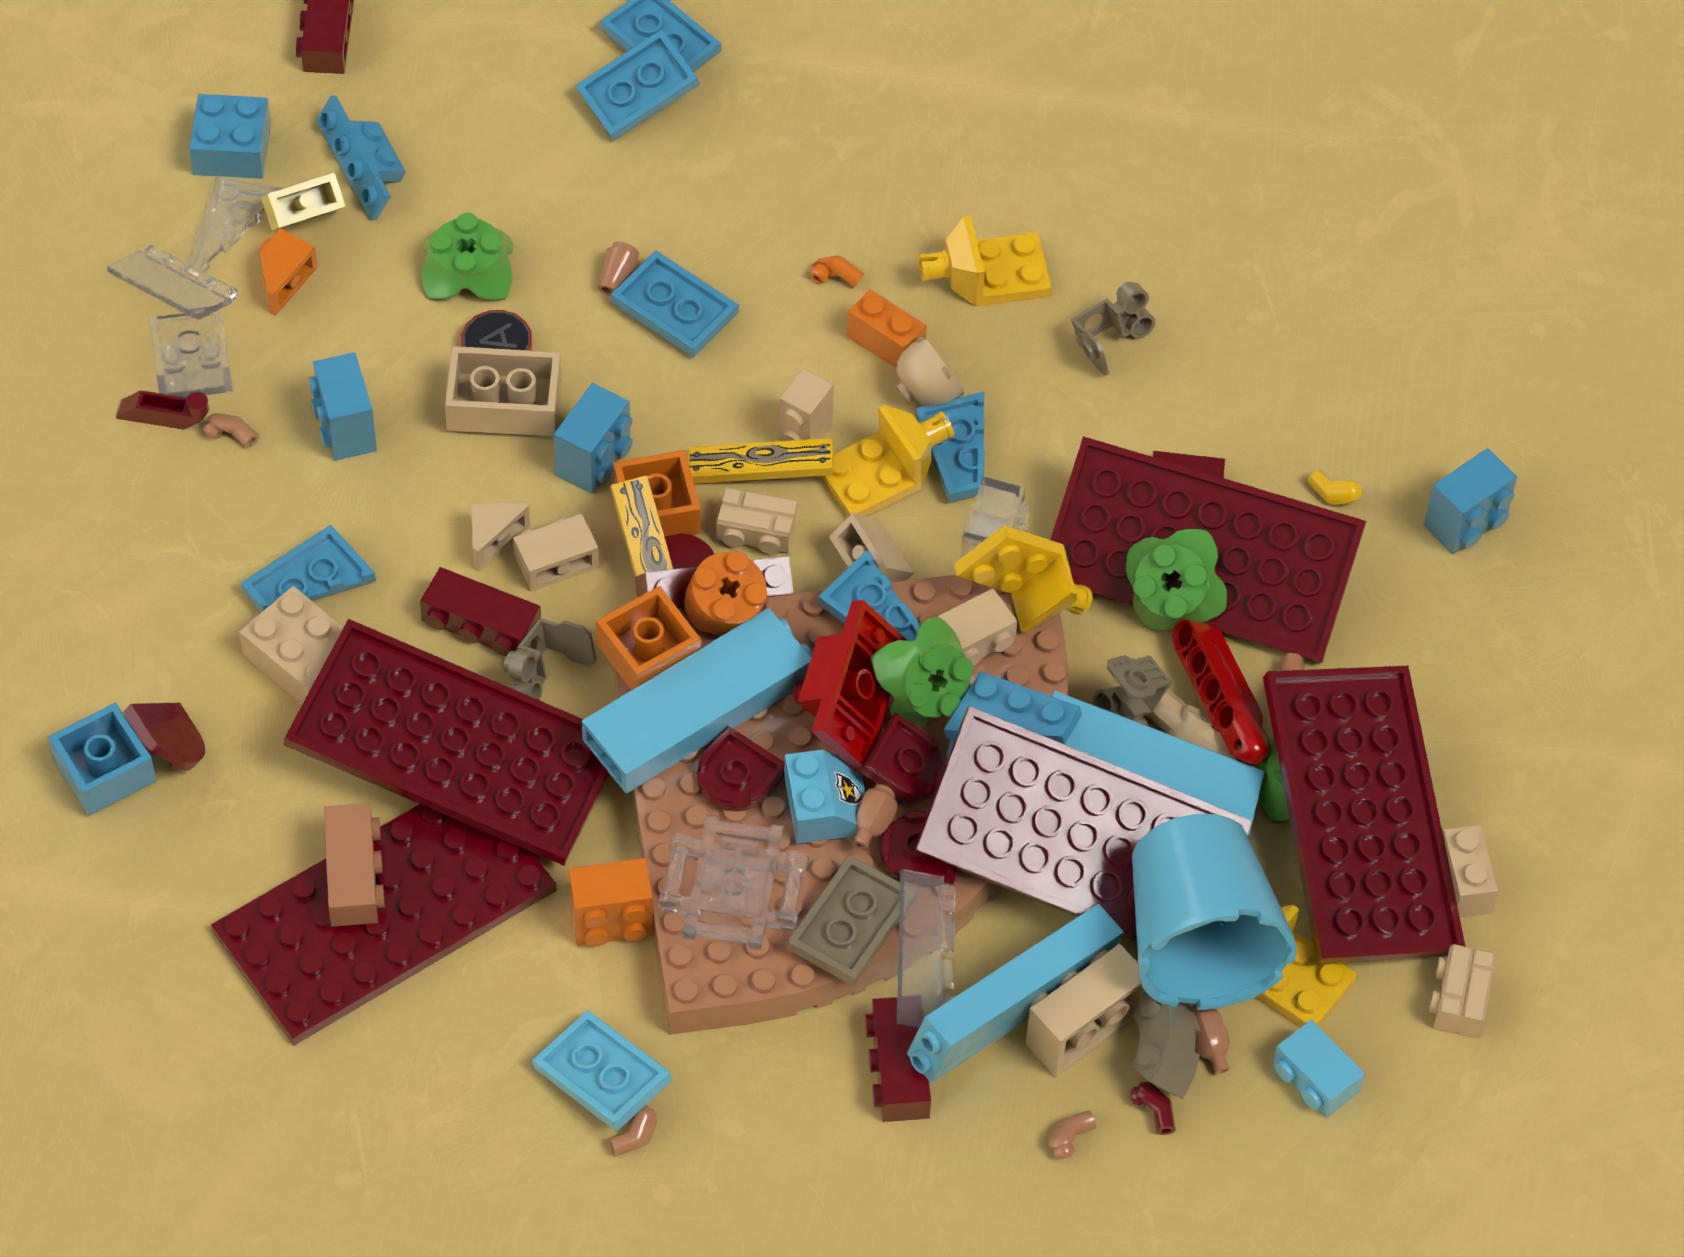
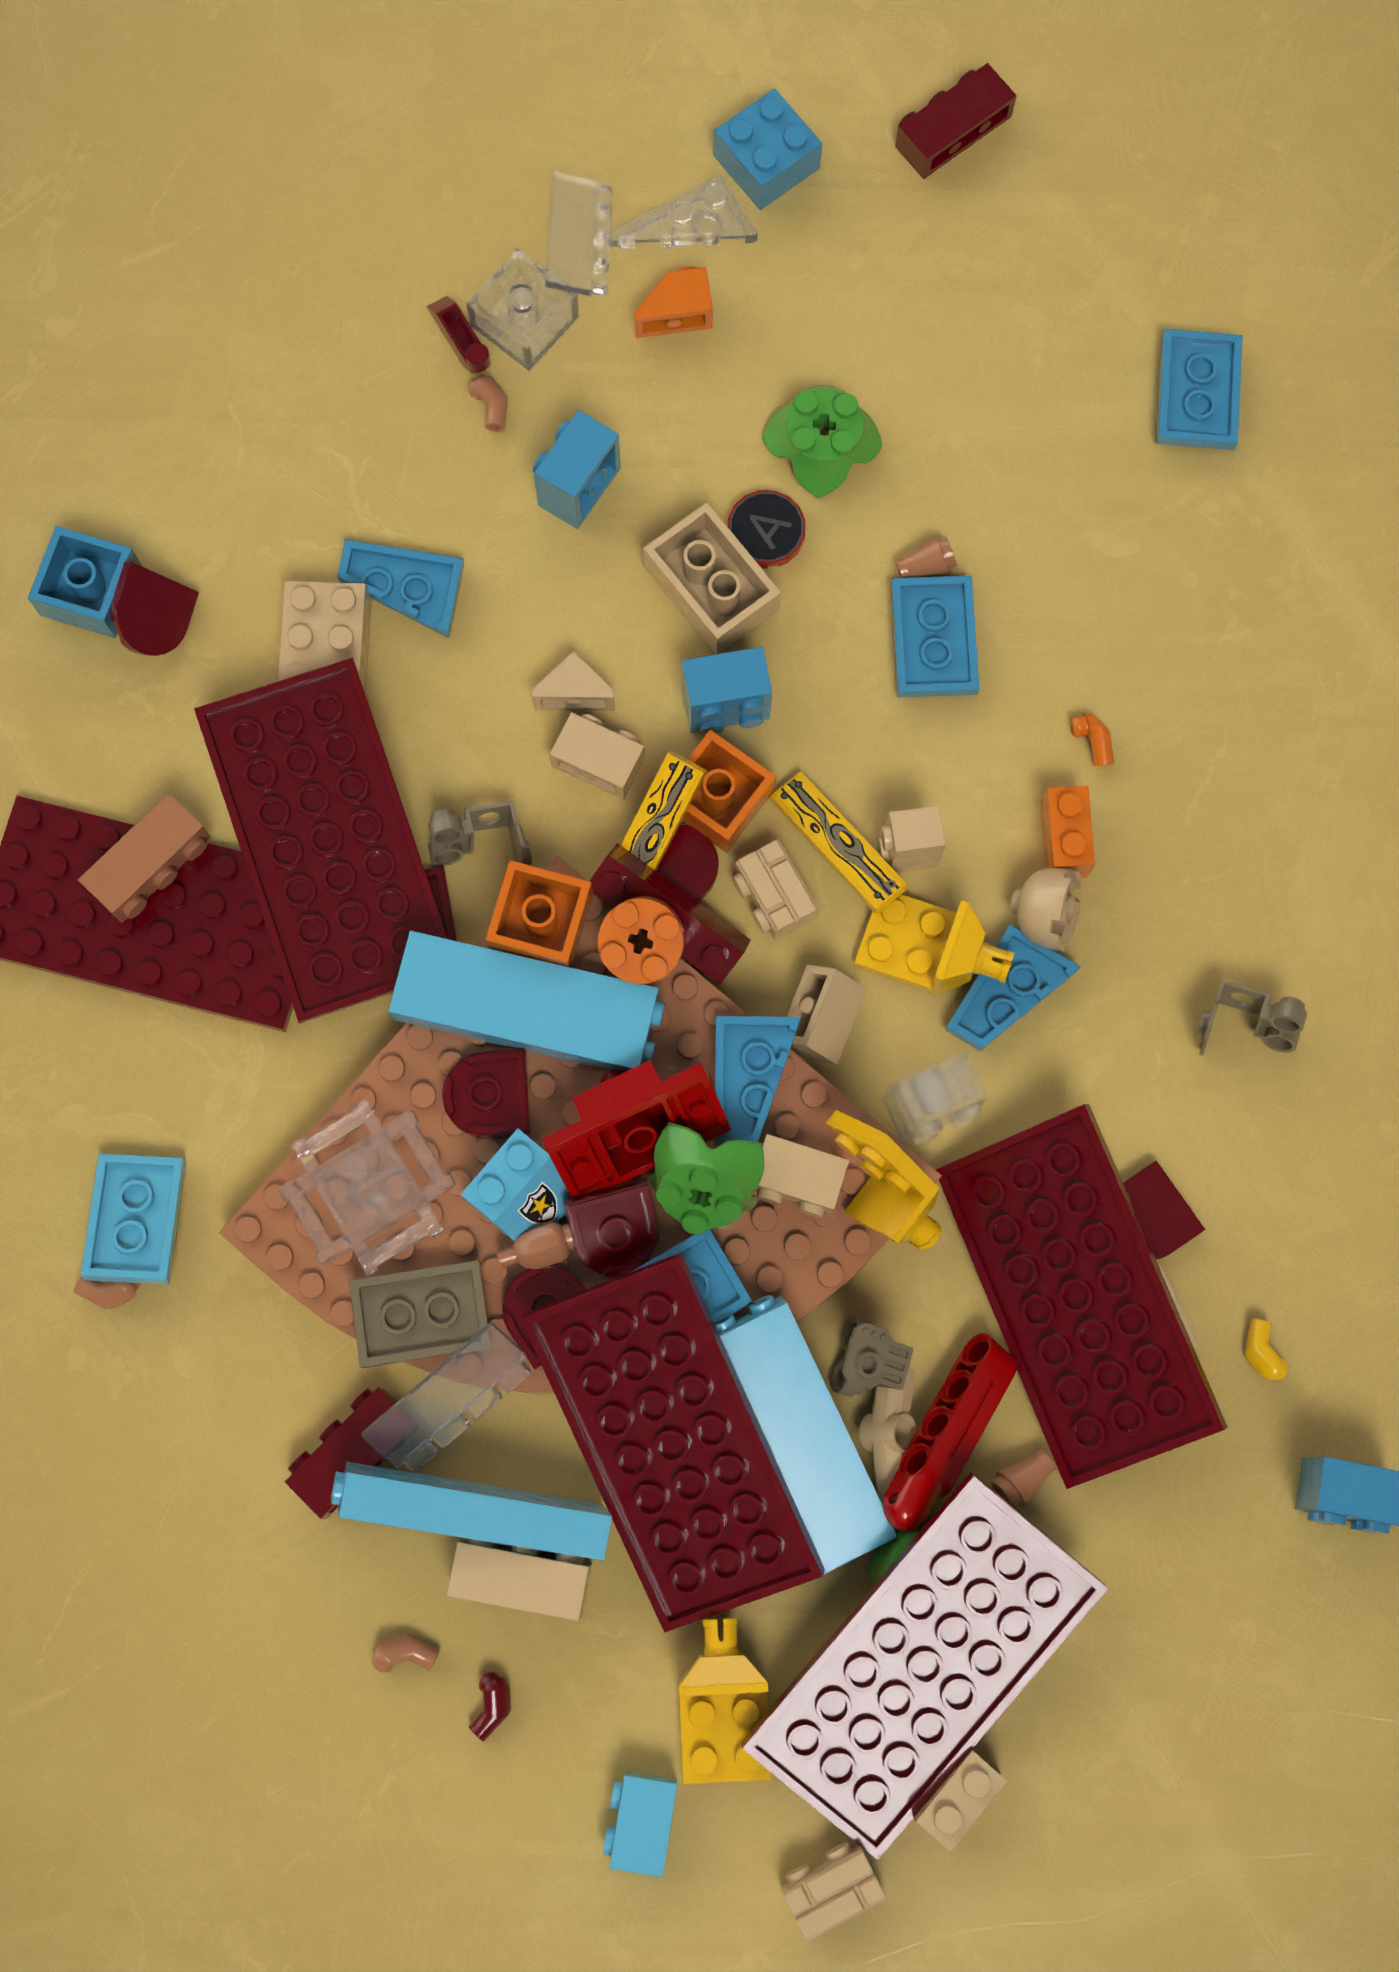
camera: 50 degrees right, 20 degrees up
(303, 201) = (751, 261): light yellow brick -> none
(362, 154) = (852, 267): dark azure bracket -> none
(477, 611) = (482, 746): dark red brick -> none
(611, 902) = (280, 1086): orange brick -> none
(637, 84) = (1125, 415): dark azure plate -> none
(989, 268) = (1220, 861): yellow plate -> none
(1019, 706) = (732, 1286): dark azure wing -> none
(1166, 1045) = (549, 1673): dark tan brick -> none
(1194, 558) = (1048, 1298): bright green brick -> none
(1206, 915) = (667, 1626): medium azure cone -> none
(1213, 1038) = (599, 1697): nougat plant -> none

